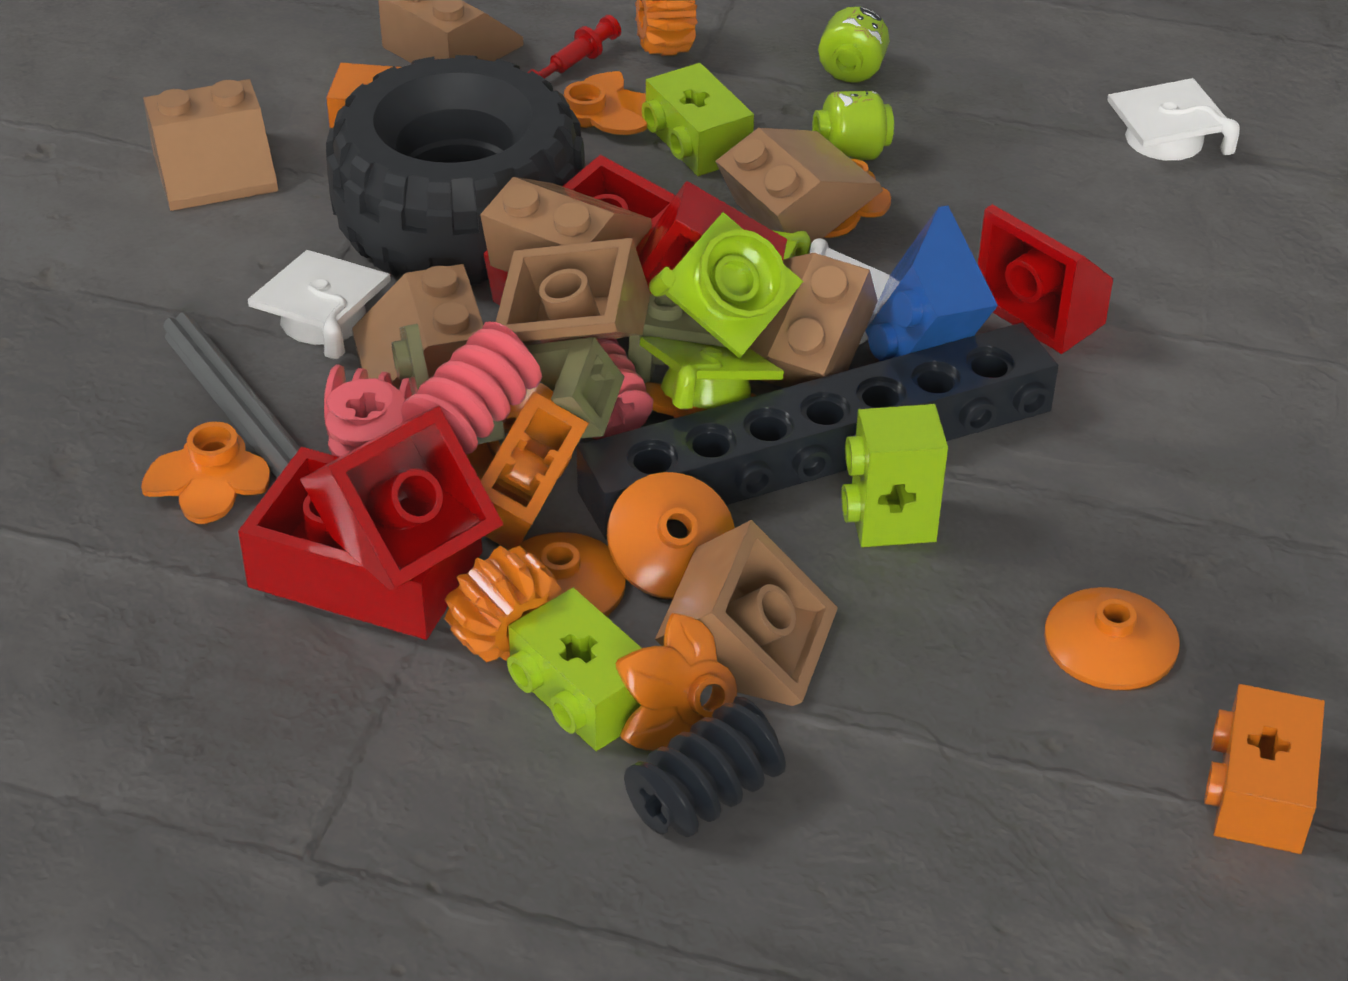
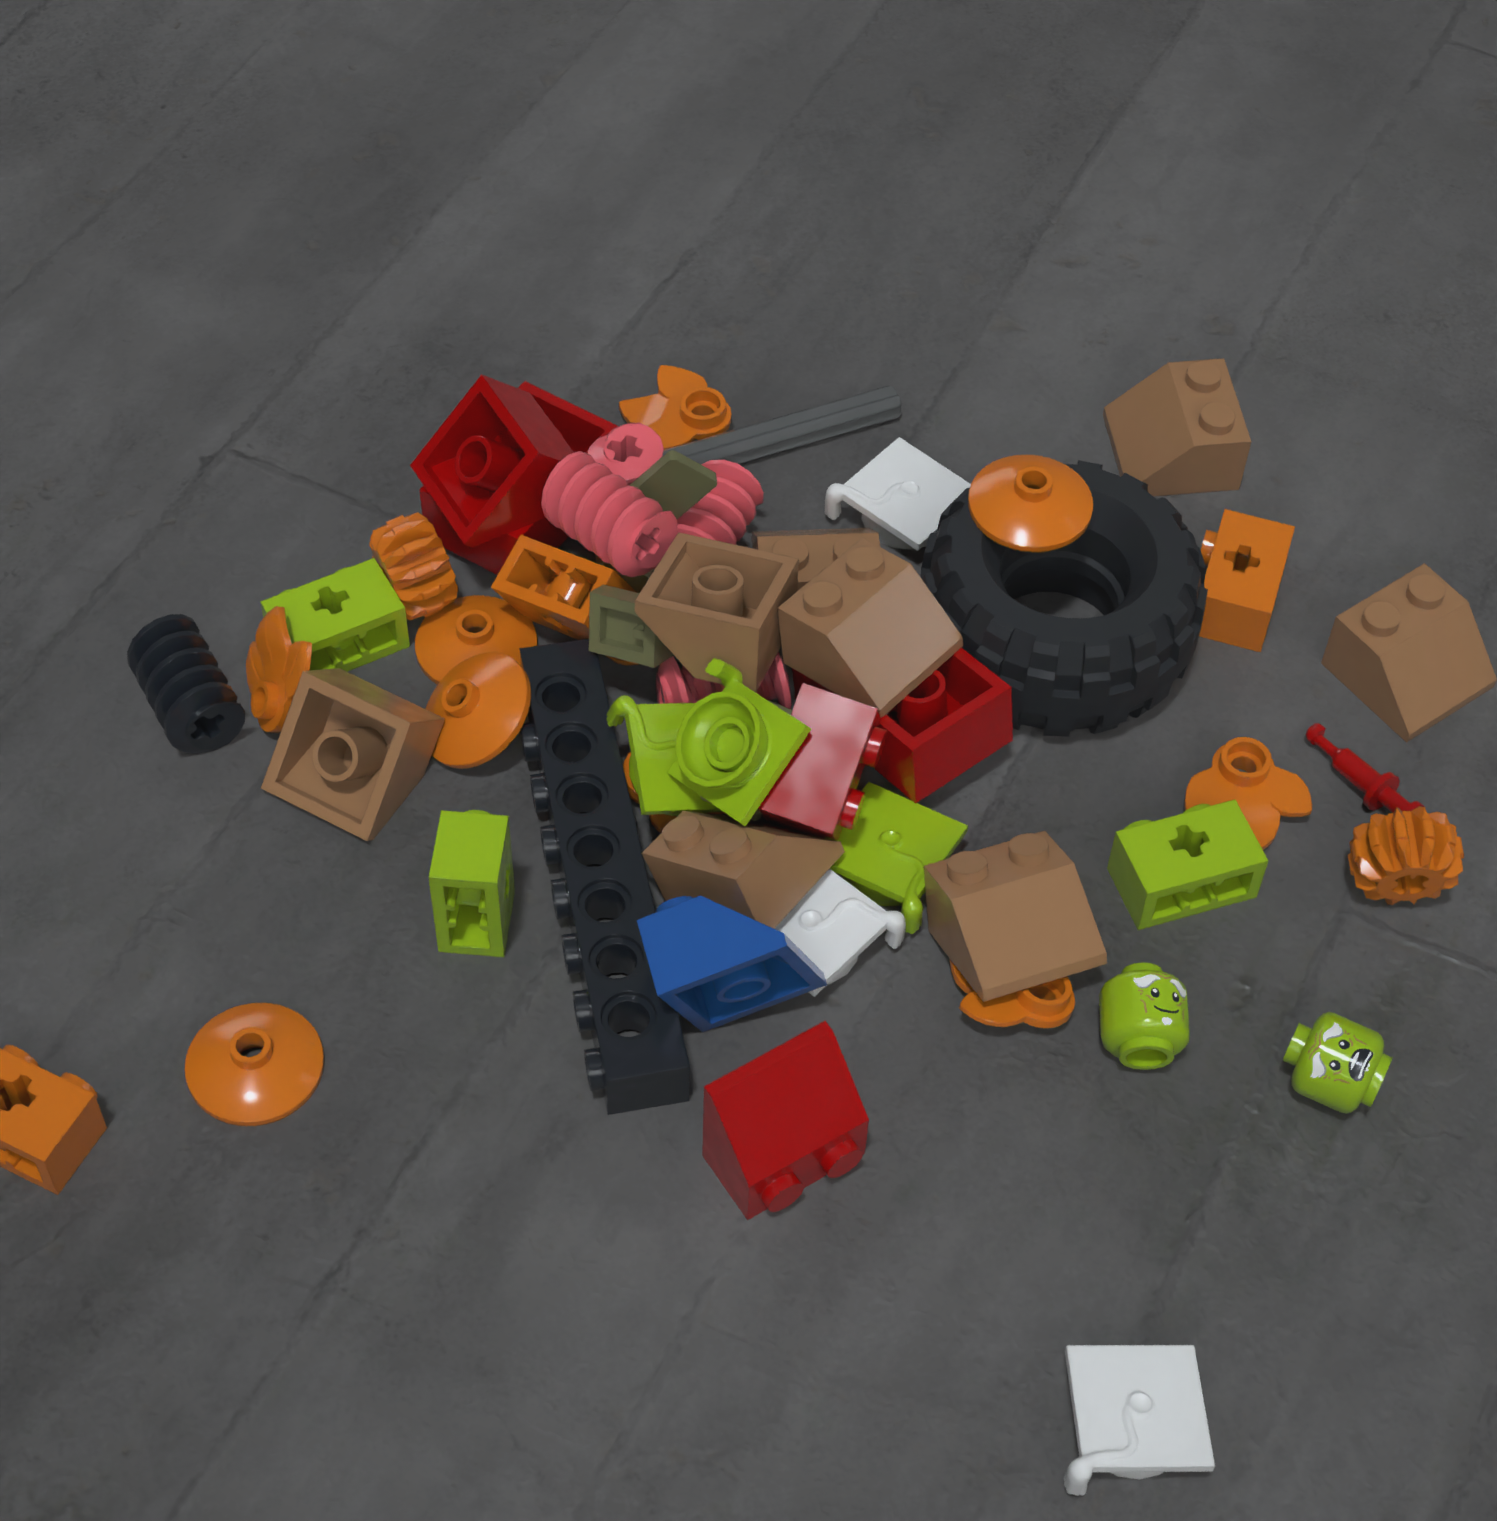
camera: 100 degrees right, 10 degrees up
(402, 137) = (1030, 503): none -> orange dish

